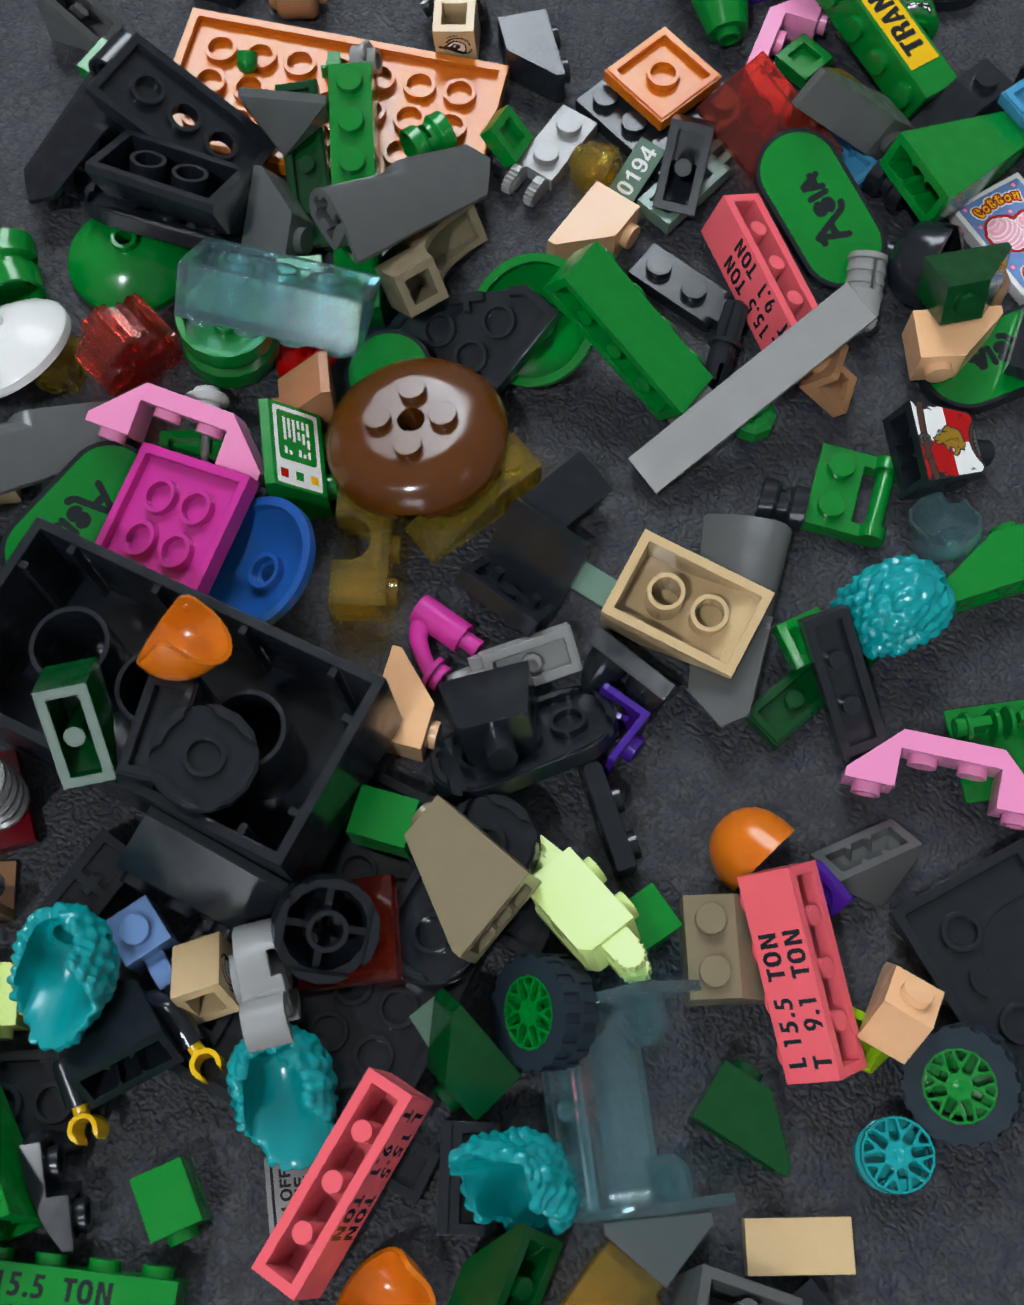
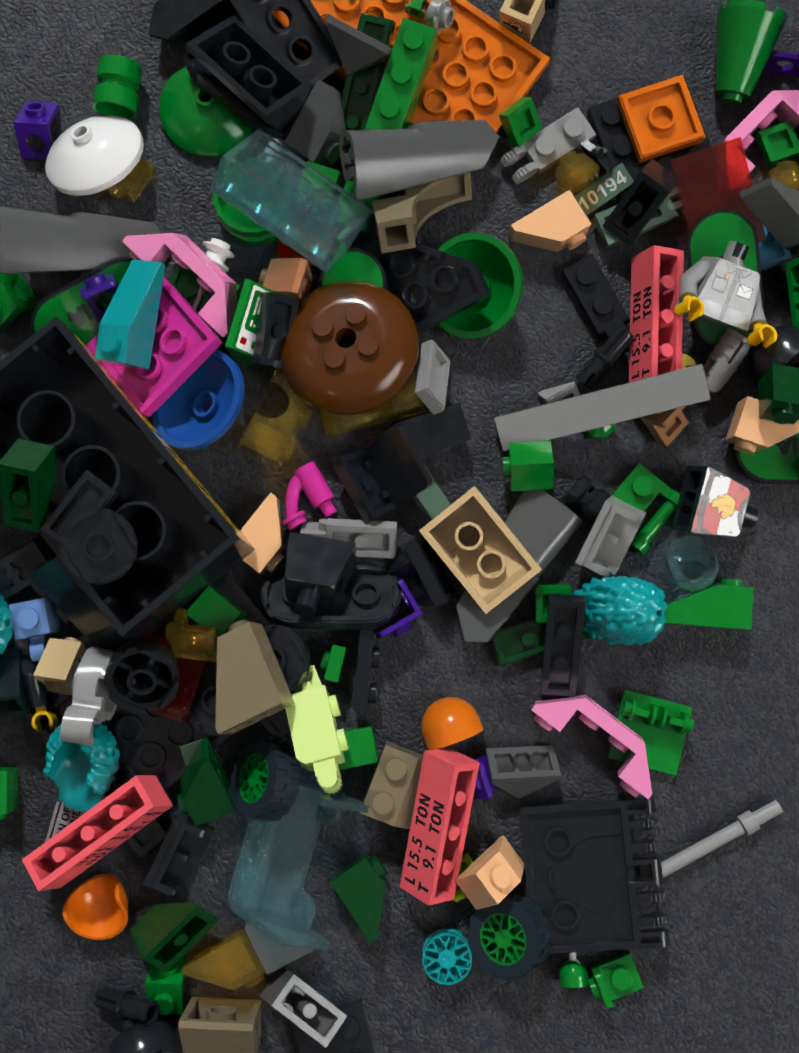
camera: 25 degrees right, 15 degrees up
(72, 483) = (94, 286): none -> dark purple bracket
(126, 345) = (175, 188): clear red brick -> none
(133, 498) = (131, 317): none -> teal slope
(186, 642) = (116, 460): orange helmet -> none
(315, 439) = (274, 322): none -> black plate
(371, 857) = (191, 641): none -> clear yellow bracket
(430, 136) = (458, 103): green wheel -> none
(517, 1179) = (207, 873): teal piece -> none
(532, 53) = (572, 51): slope -> none
(534, 435) = (432, 377): none -> light grey tile
(564, 825) = (333, 662): none -> green plate
(610, 136) = (597, 154): none -> black piece
(628, 331) = (532, 327): green brick -> none
(697, 492) = (529, 465): none -> green brick
(798, 1246) = (363, 980): tan tile -> none
(830, 213) = (726, 294): none -> light grey torso
(835, 531) = (610, 537): none -> light grey hinge

